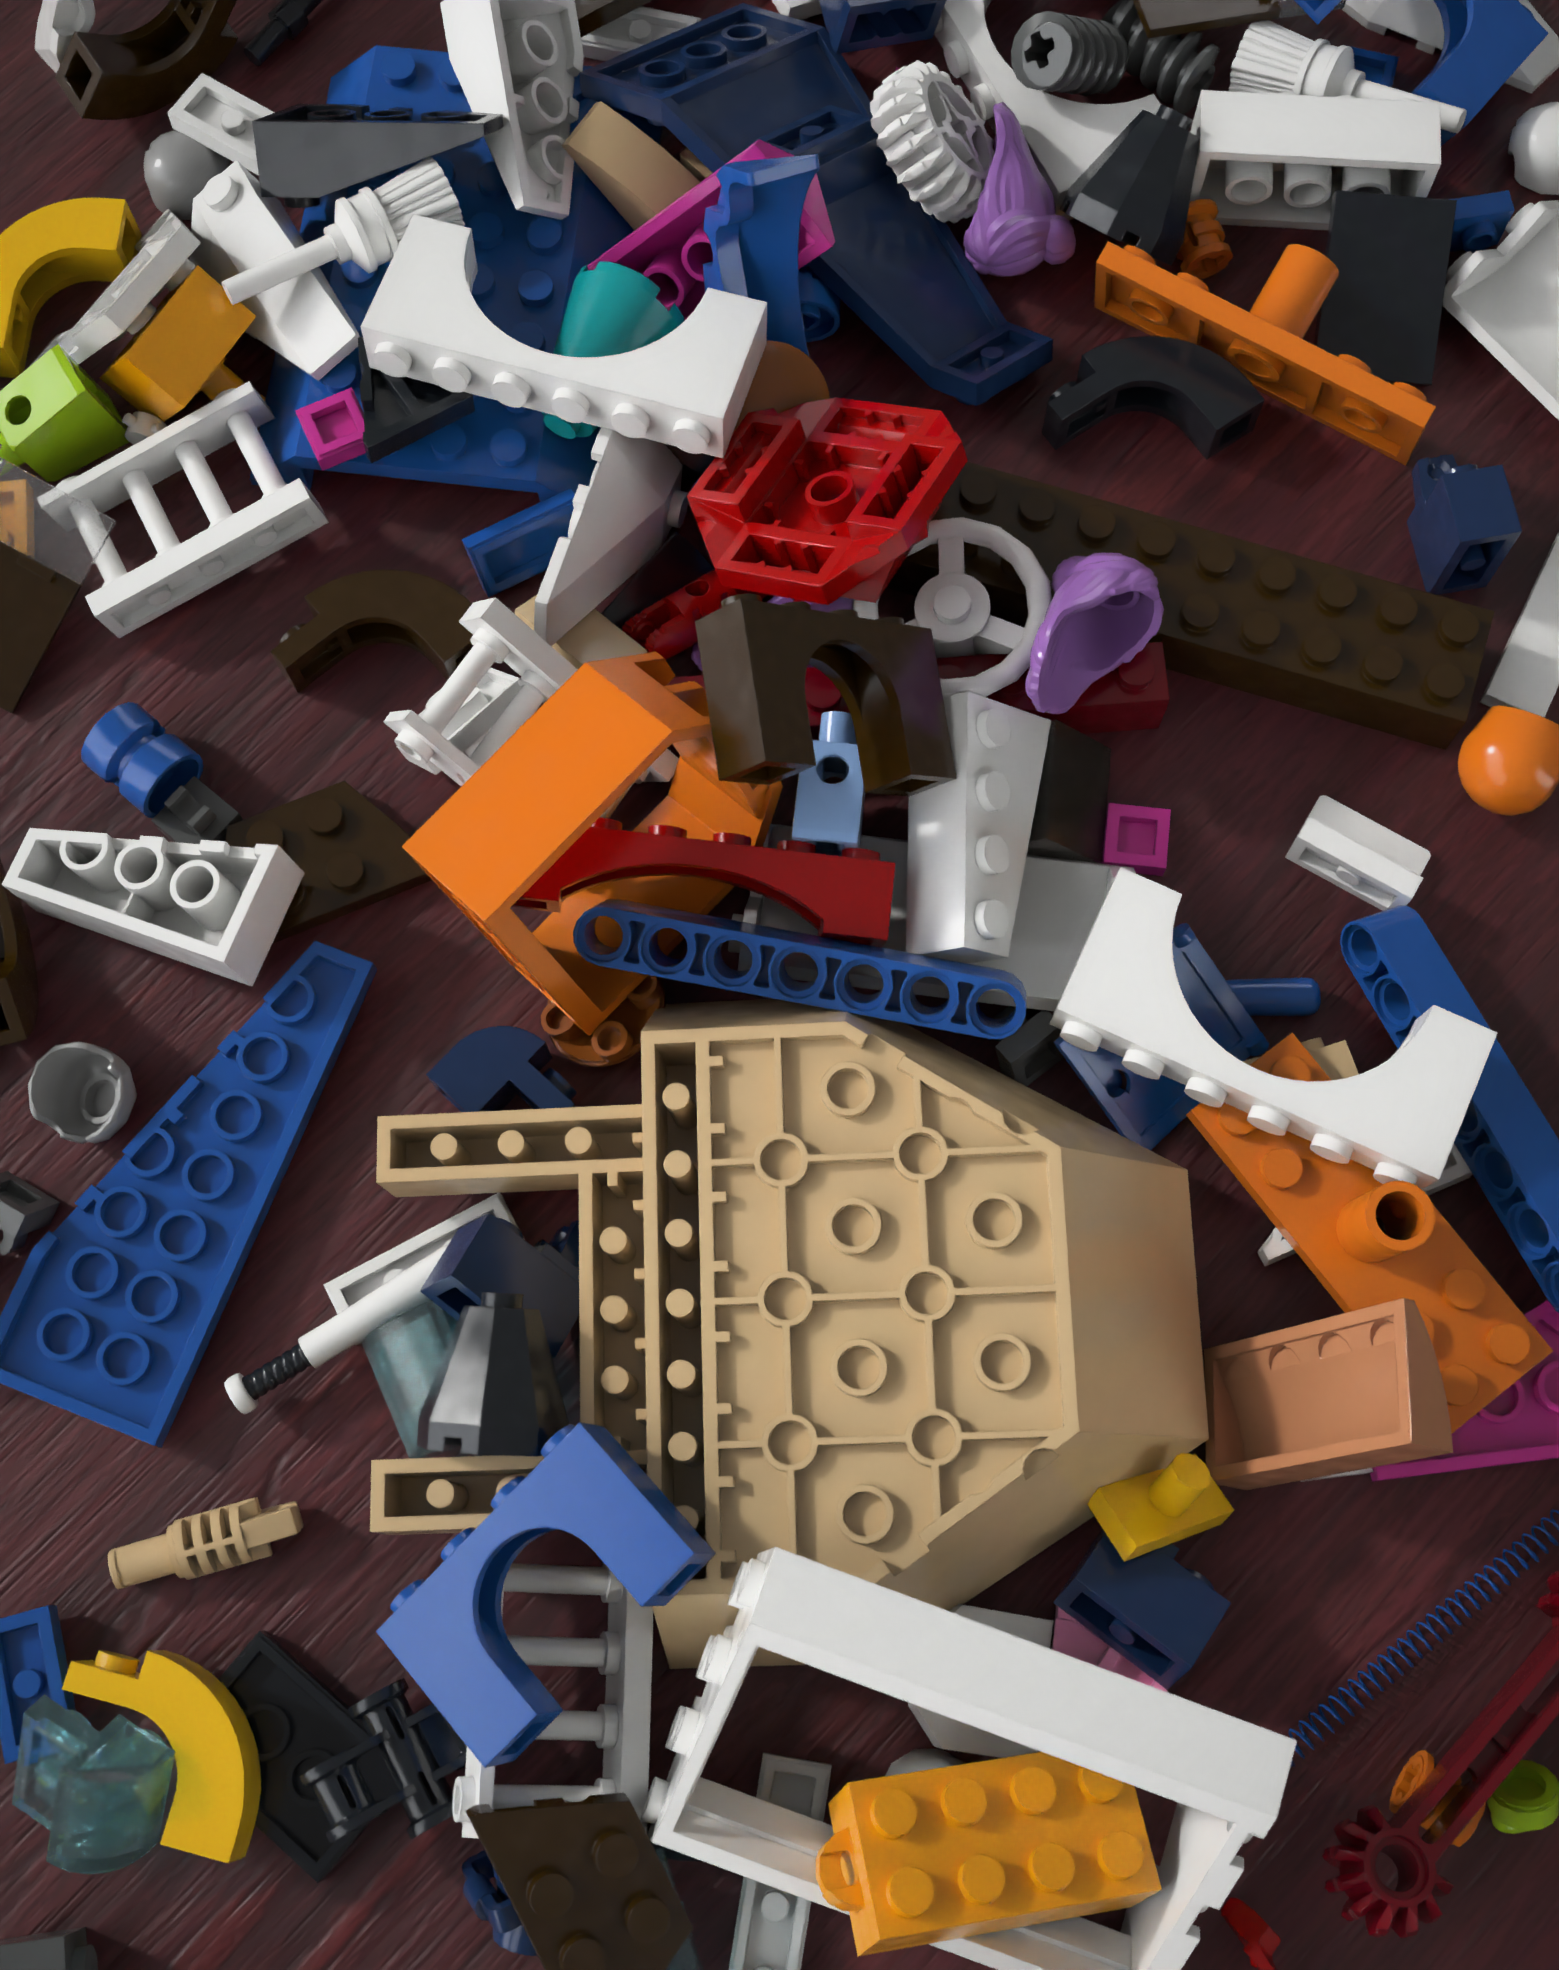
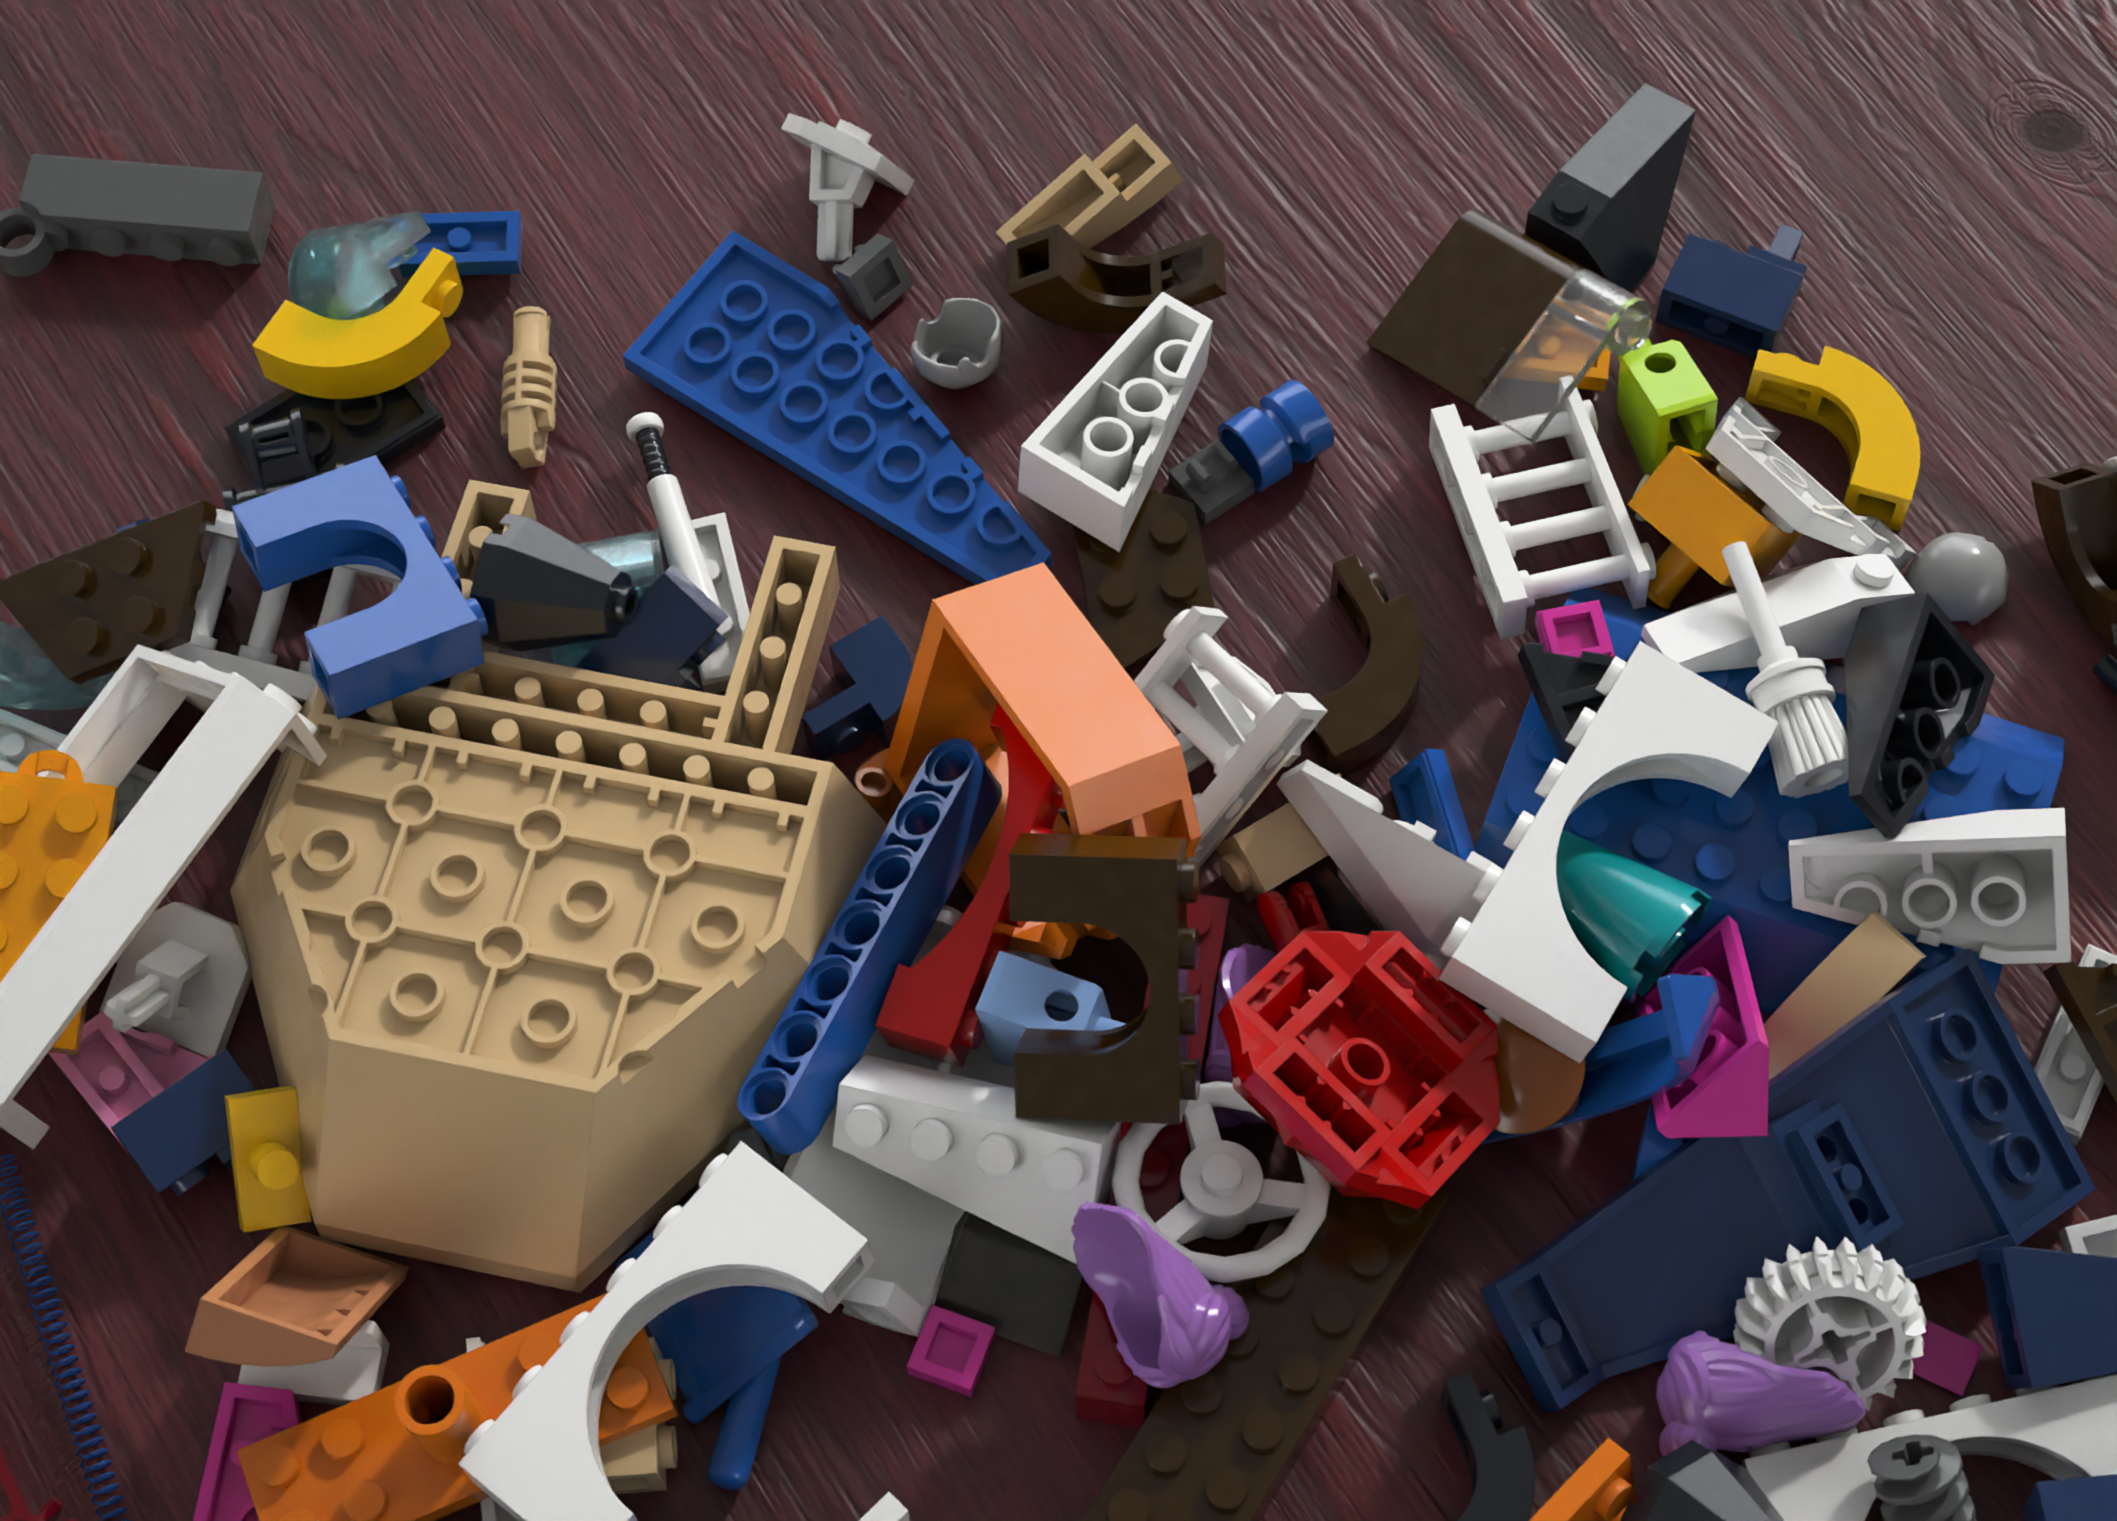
camera: 105 degrees right, 10 degrees down
(219, 120) = (1998, 605): white panel -> none

